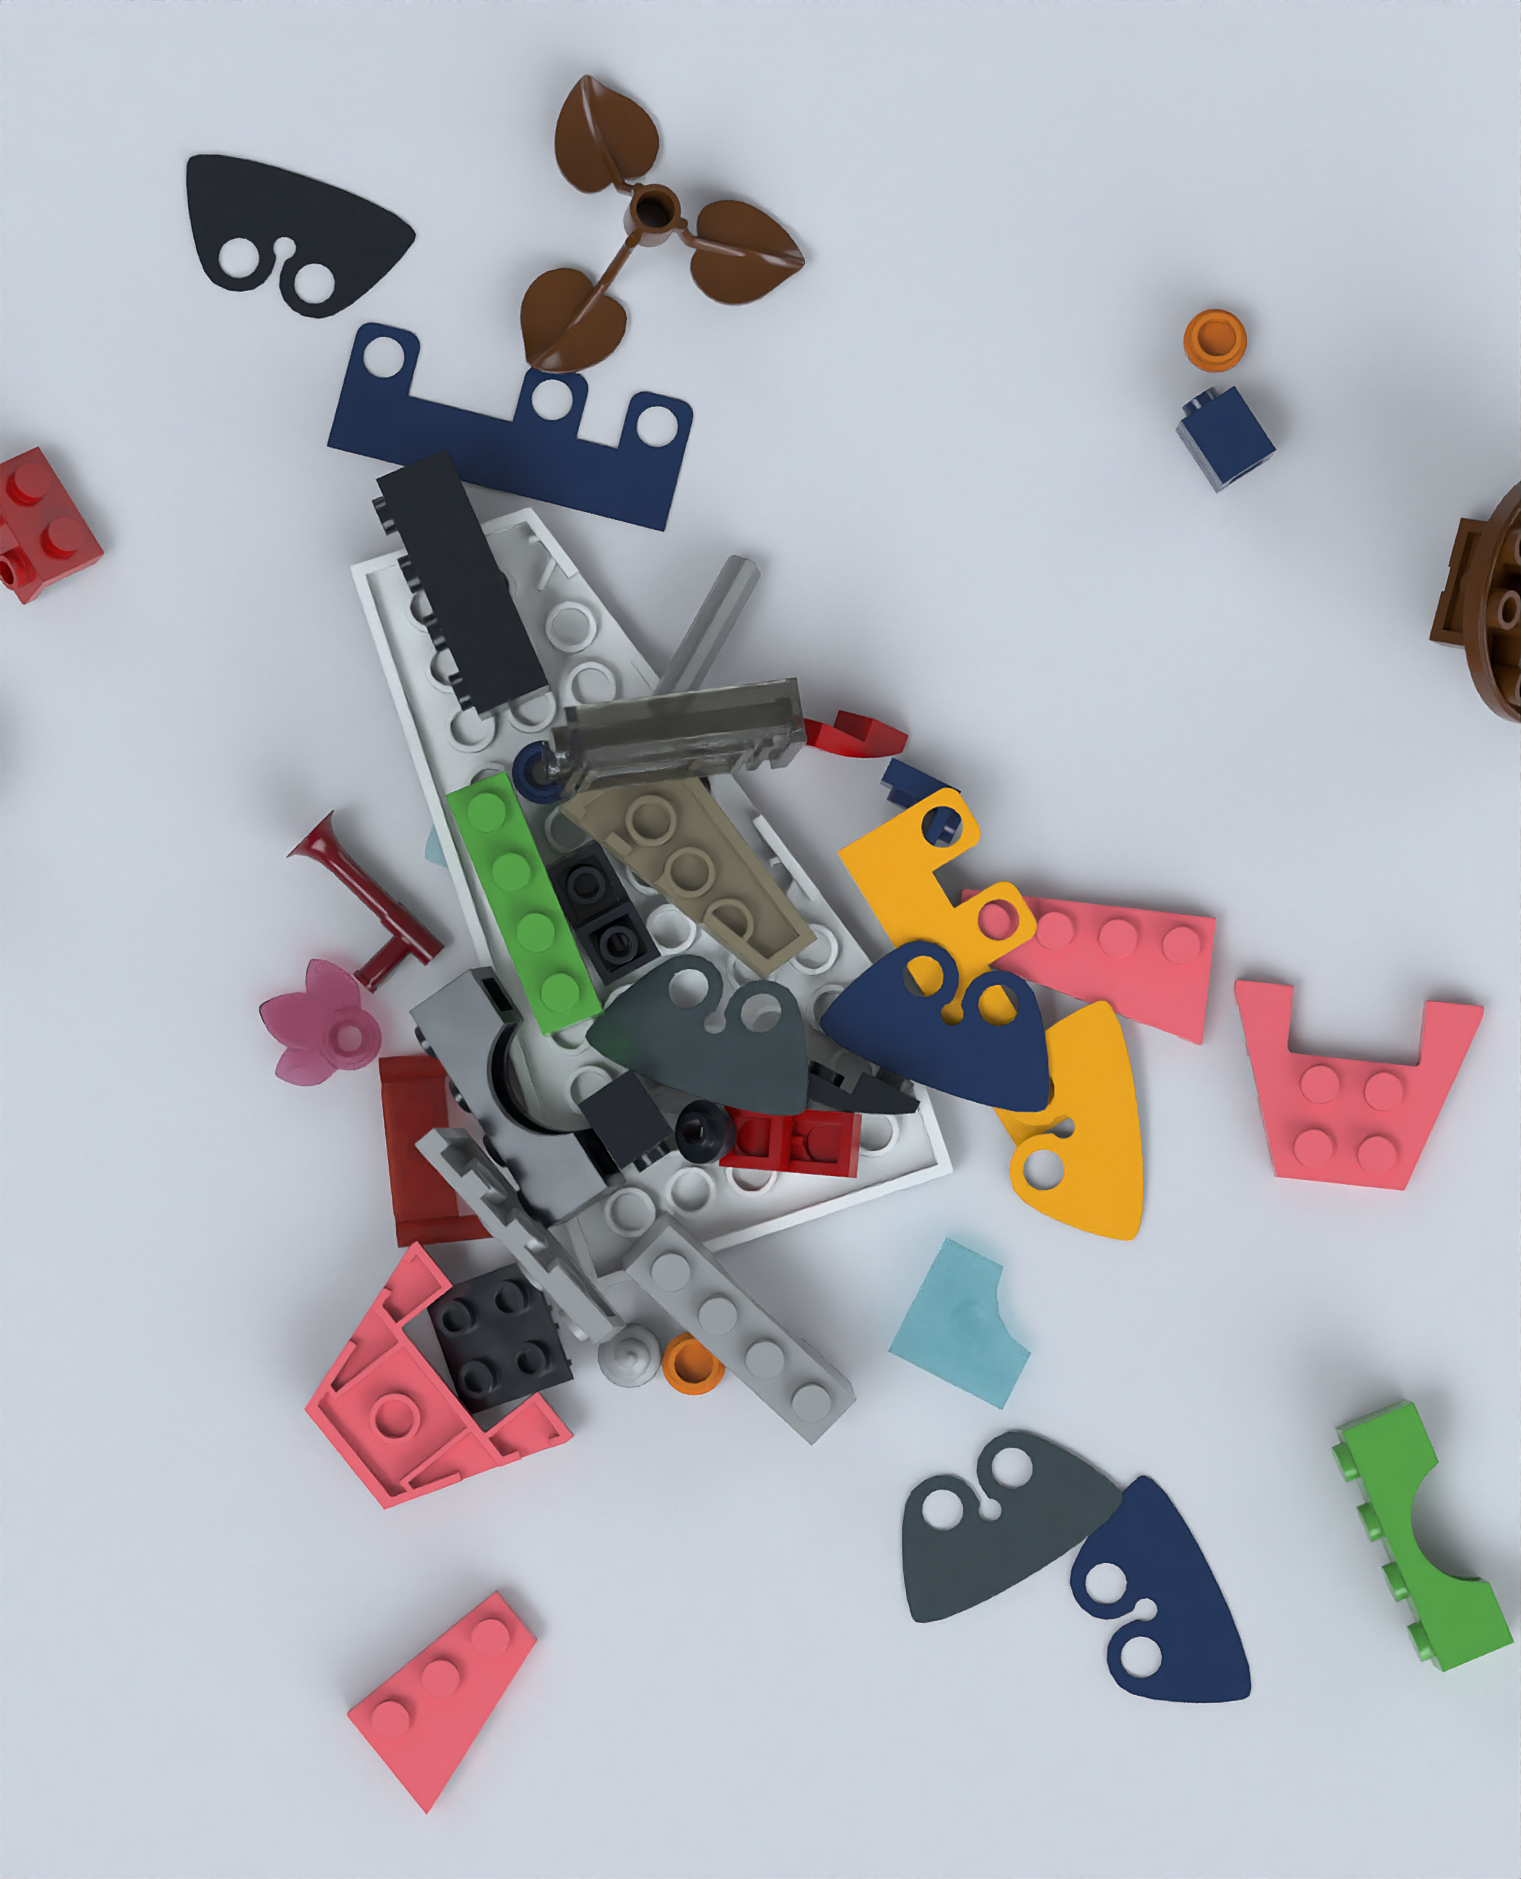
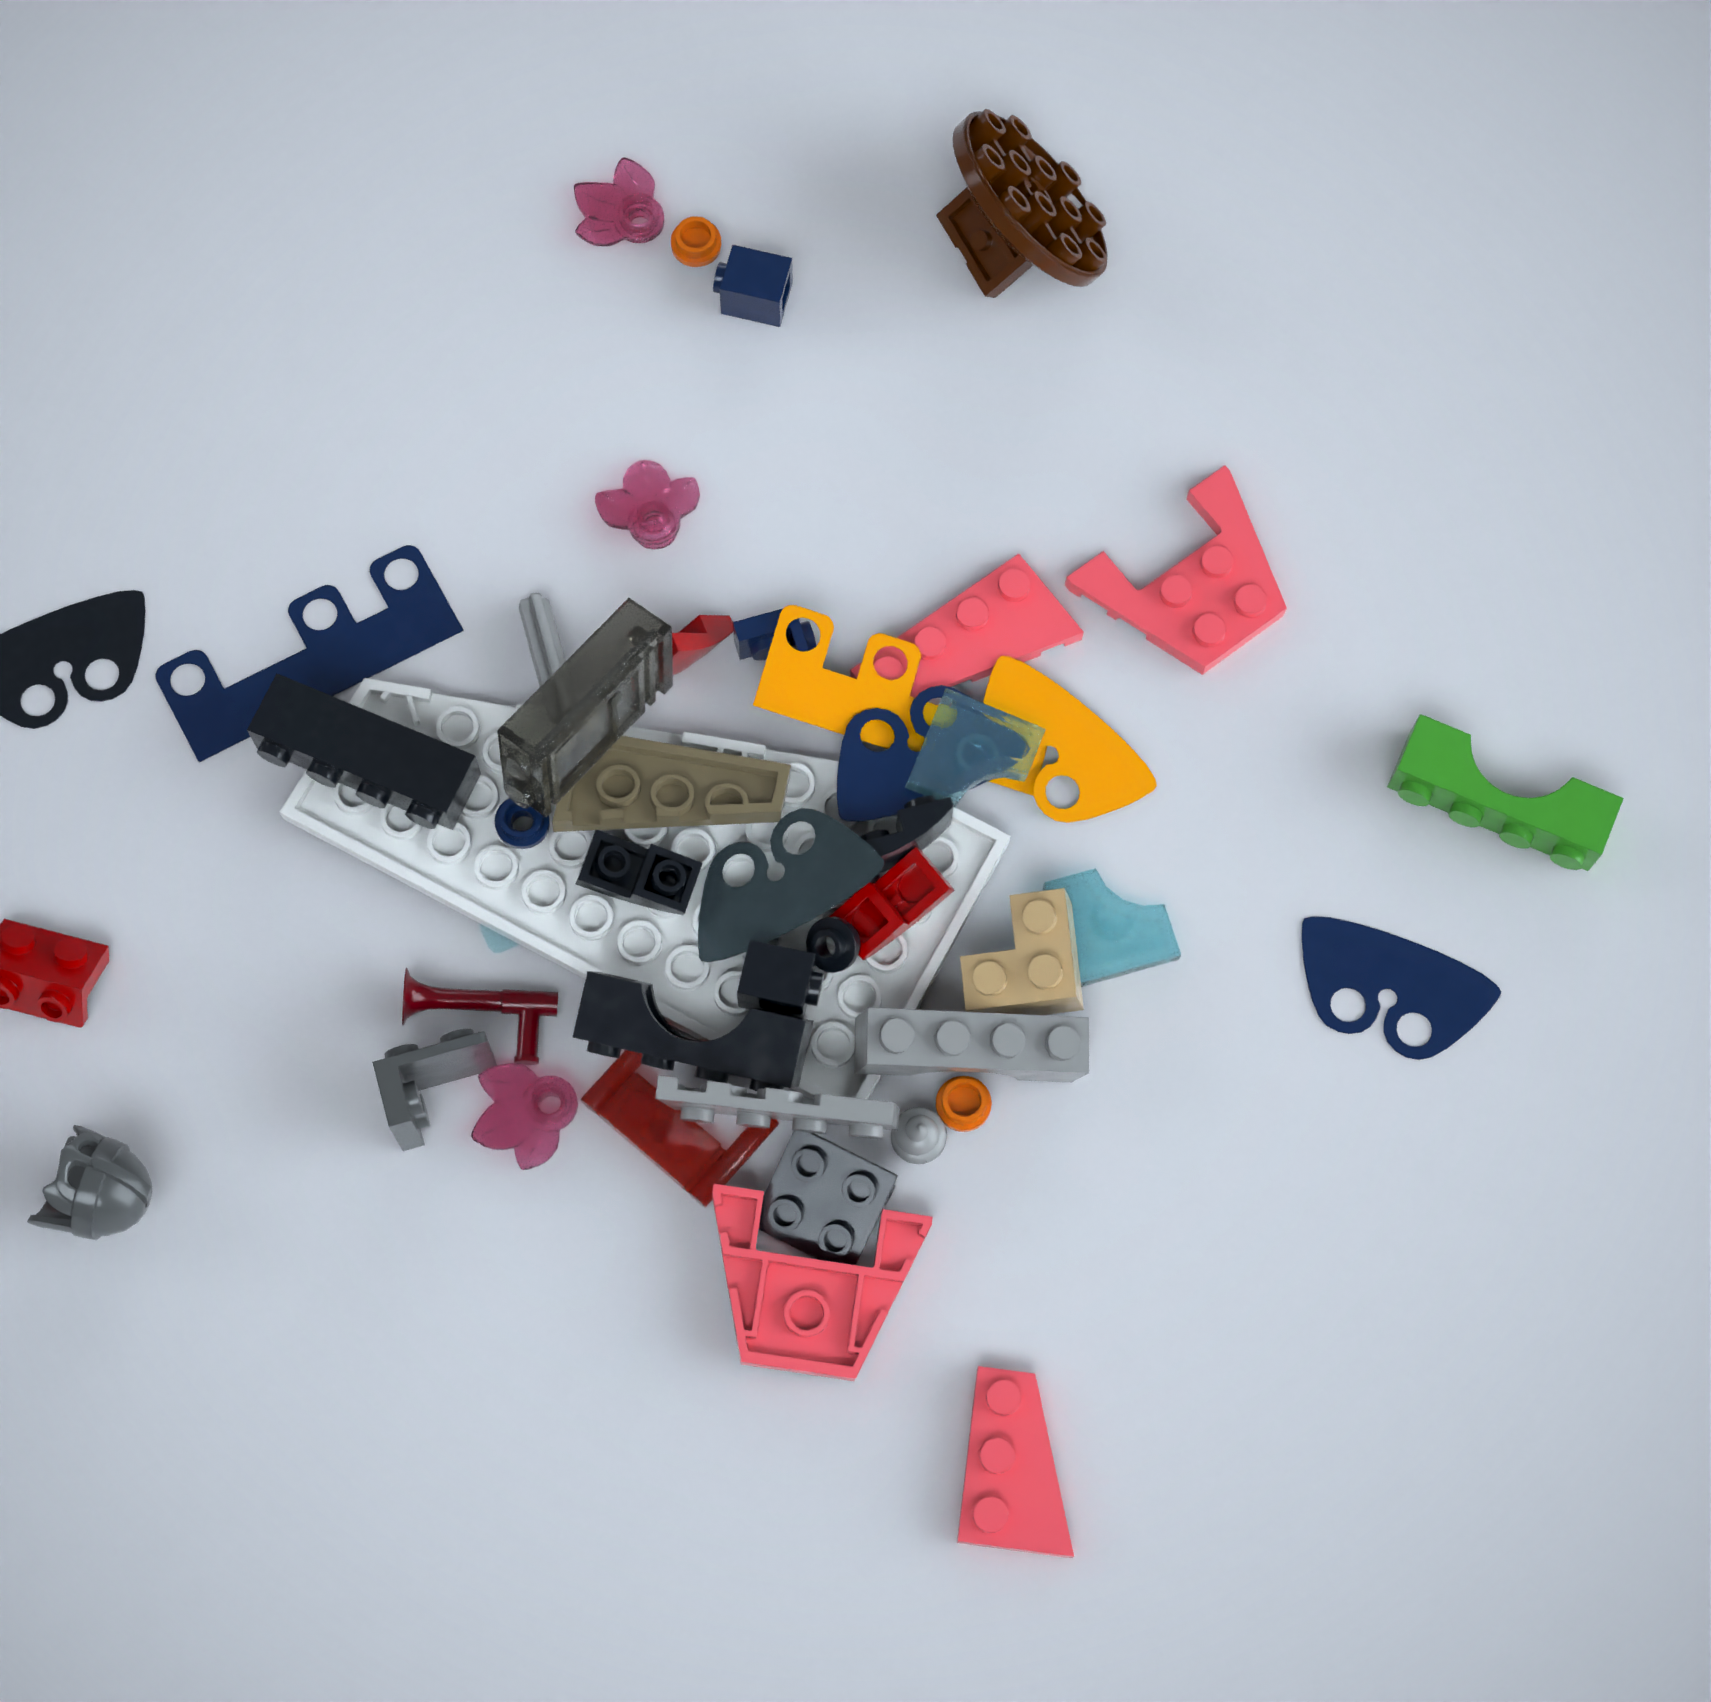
camera: 45 degrees left, 15 degrees down
(221, 940) = (413, 1069): none -> dark grey bracket
(525, 904) = (552, 887): bright green arch -> none
(612, 140) = (217, 435): reddish brown plant -> none
(860, 1318) = (1041, 970): none -> tan brick
(939, 555) = (649, 504): none -> clear pink plate
(983, 1558) = (1260, 1059): clear light blue piece -> none
(992, 1060) = (972, 745): none -> clear light blue tile
(1174, 232) = (613, 206): none -> clear pink plate

